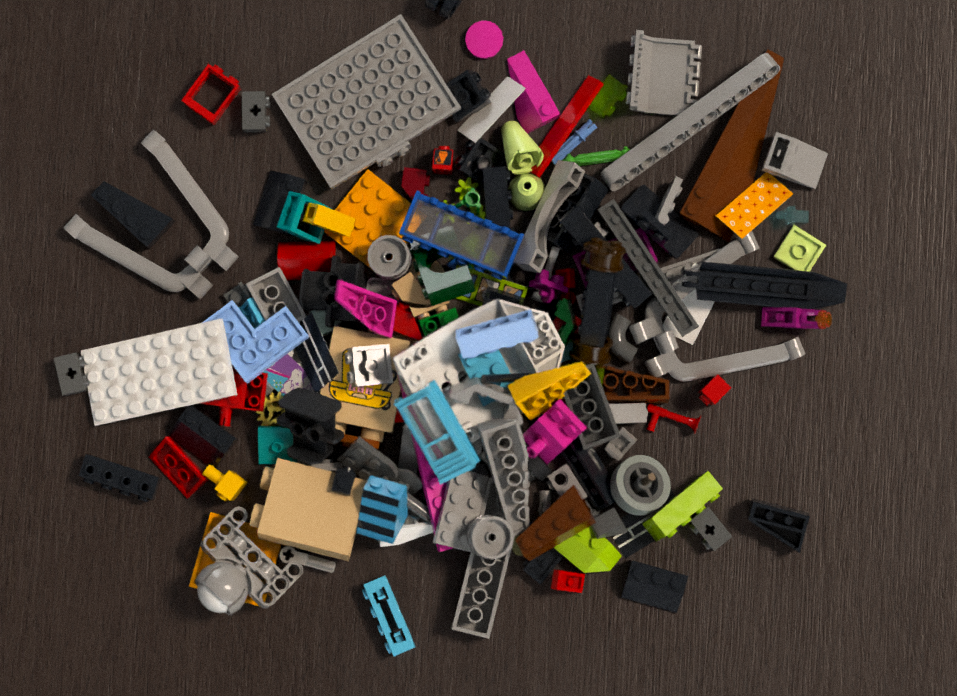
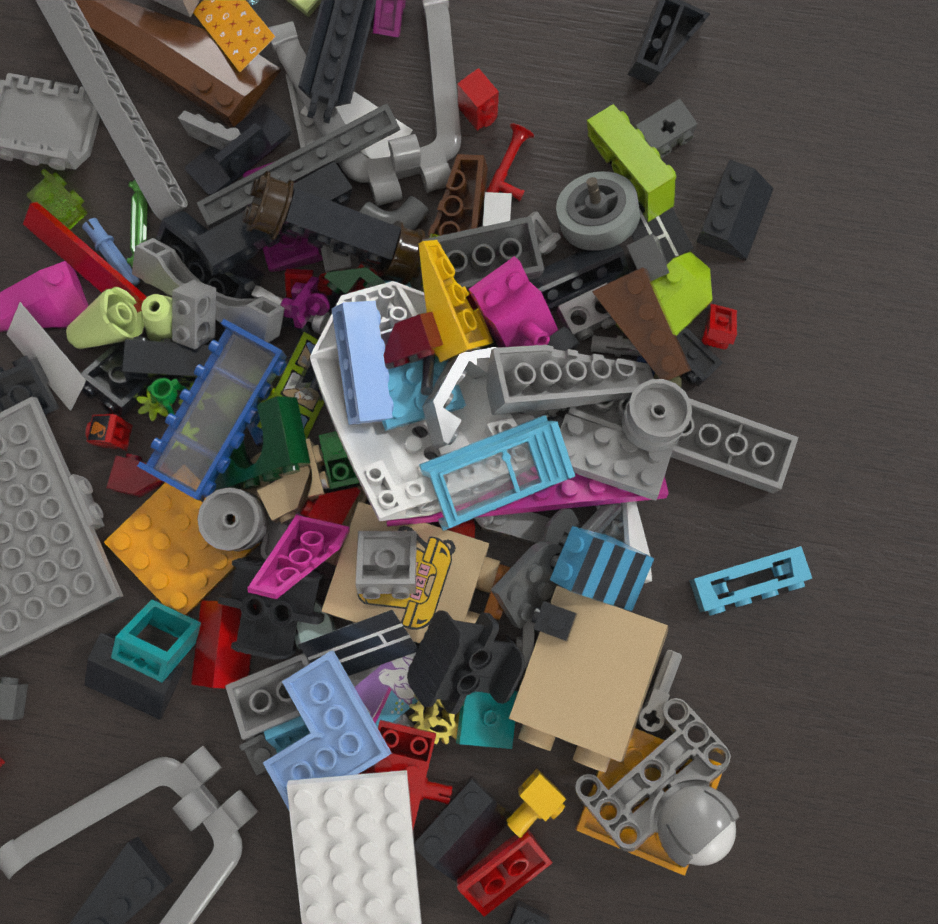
camera: 85 degrees left, 5 degrees down
(329, 219) = (162, 602): yellow brick -> none
(520, 365) = (412, 337): none -> dark red slope
(528, 211) = (193, 314): none -> light grey brick

